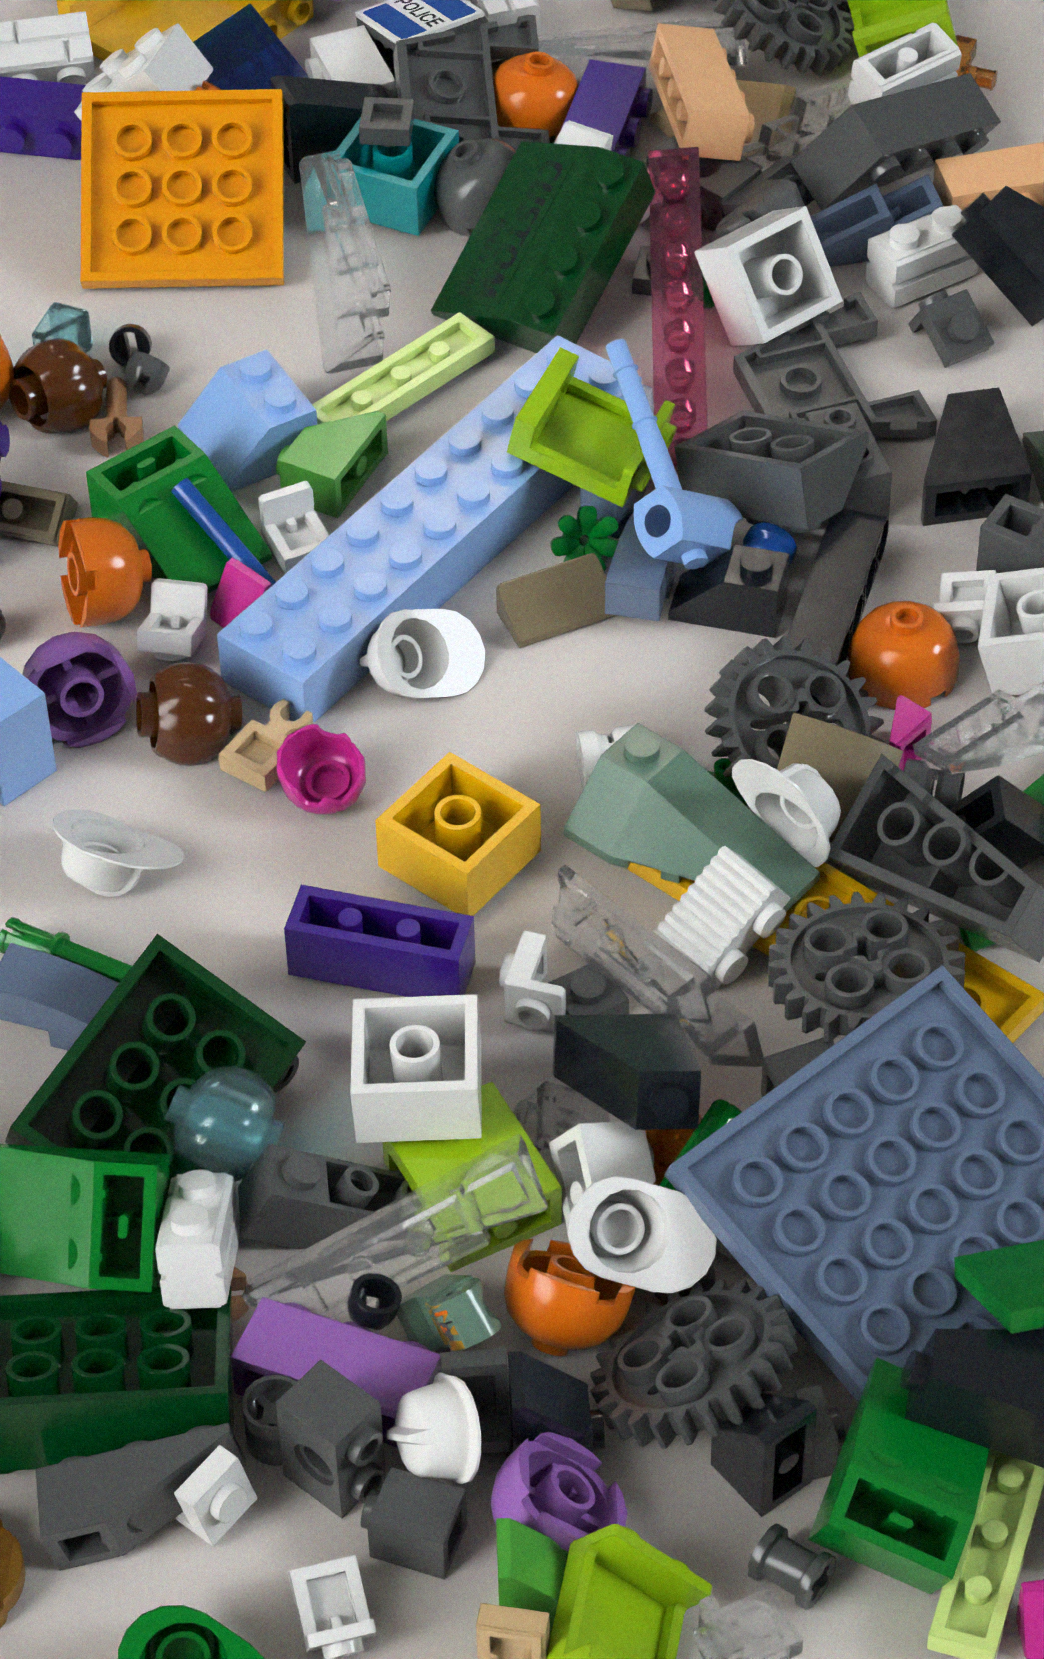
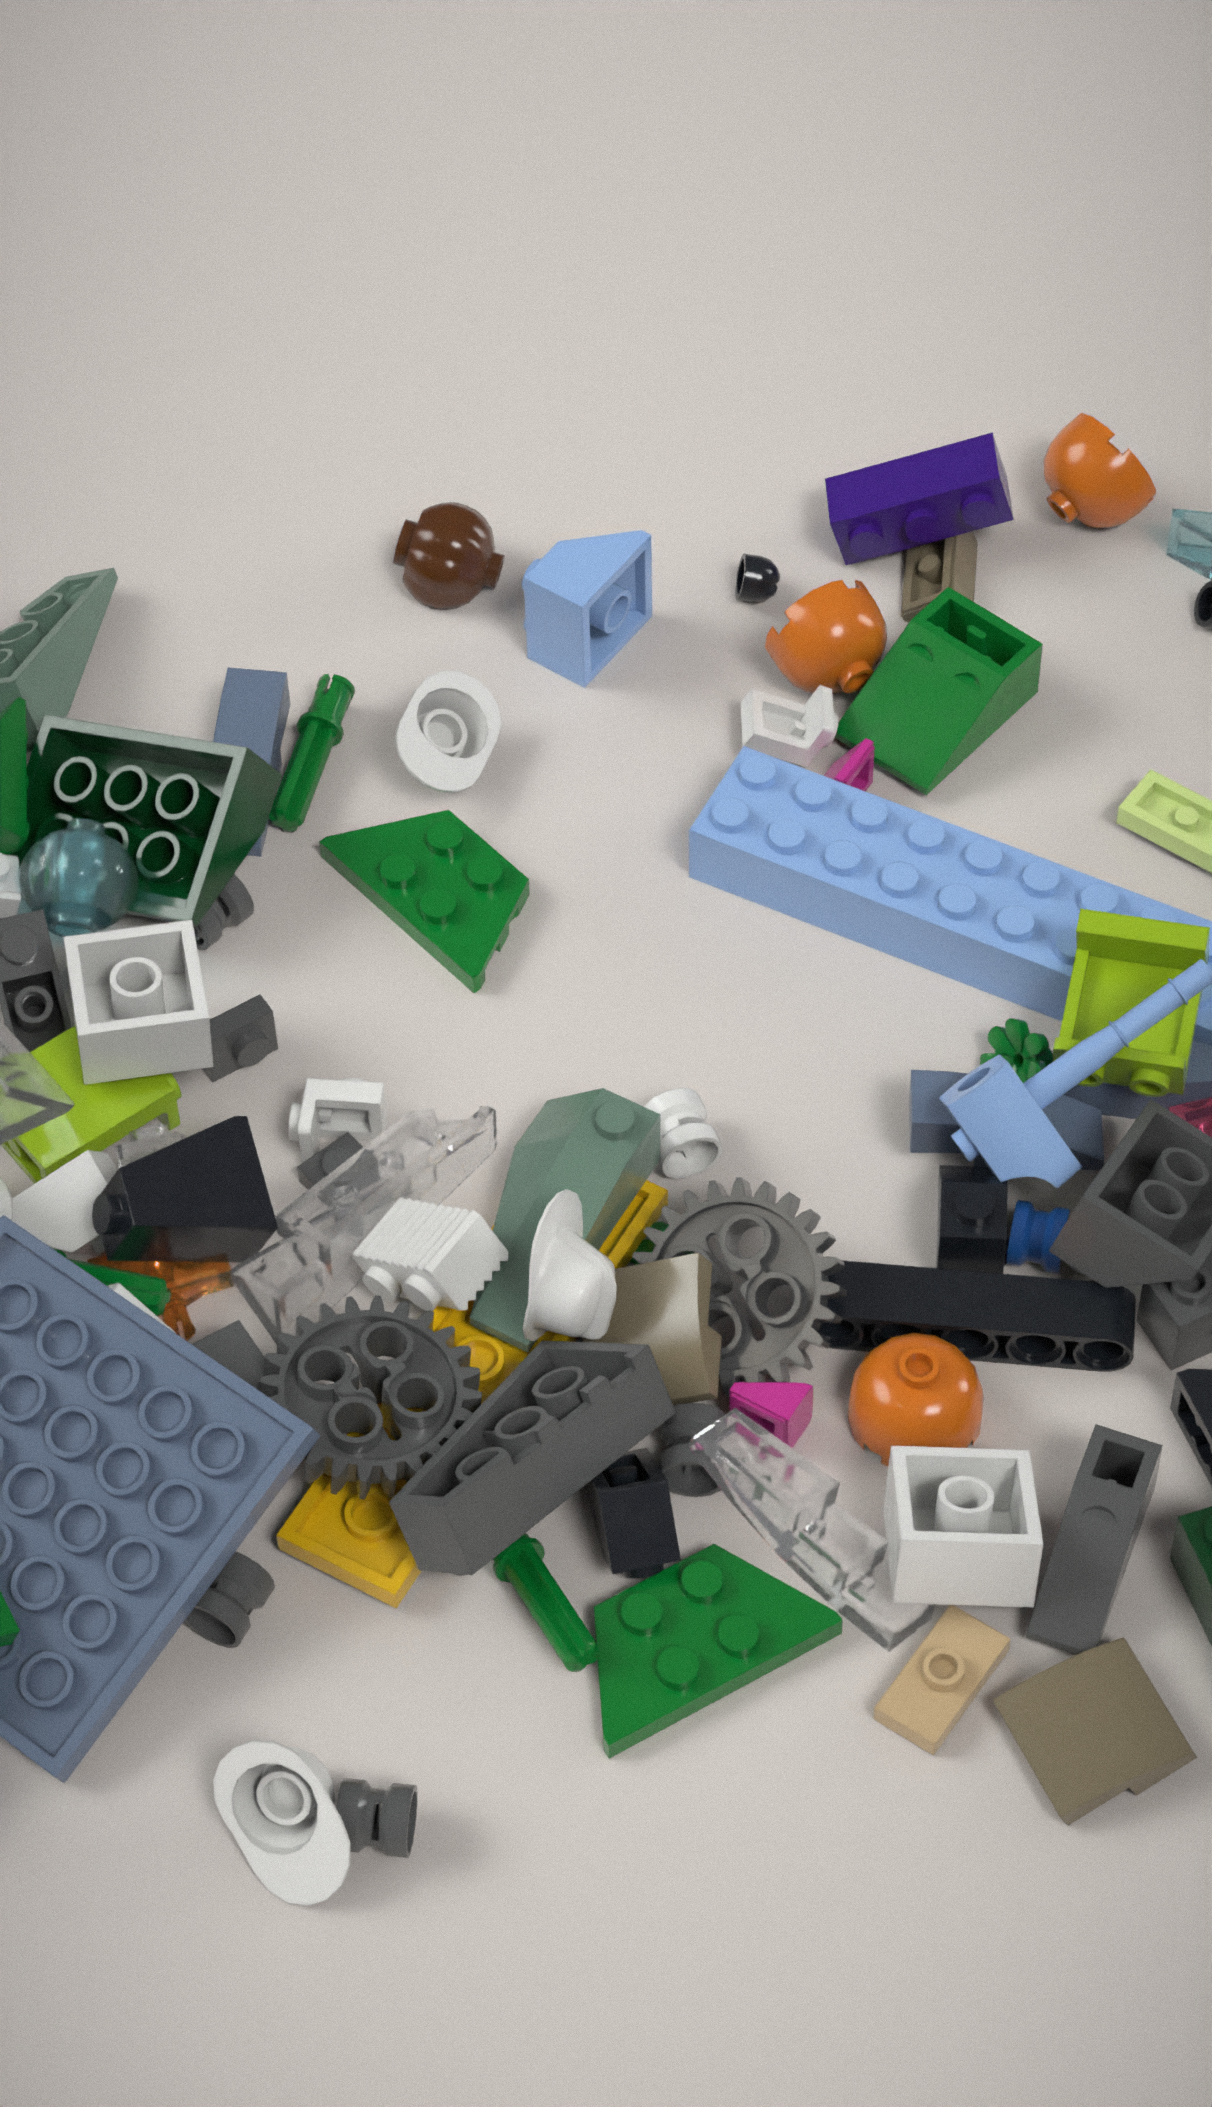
camera: 80 degrees right, 5 degrees up
(58, 381) = (1120, 557): reddish brown plant -> none
(84, 686) = (663, 658): medium lavender cylinder -> none
(116, 420) = (1097, 625): medium nougat bar -> none
(146, 371) = (1178, 627): dark grey hinge -> none
(187, 713) = (659, 761): reddish brown plant -> none
(216, 527) = (910, 729): blue bar -> none
(247, 418) = (1121, 733): light blue slope -> none
(249, 893) = (436, 886): none -> green wing
(254, 749) = (629, 835): tan plate -> none
(290, 523) = (964, 795): white bracket -> none
(320, 770) = (595, 881): dark pink hair -> none
(335, 459) = (1078, 813): bright green slope -> none
(379, 944) = (352, 972): dark purple brick -> none
(425, 654) = (785, 940): white piece -> none
(458, 835) = (518, 1011): yellow brick -> none
(553, 600) = (912, 1037): dark tan slope -> none
(963, 602) = (1030, 1434): white bracket -> none

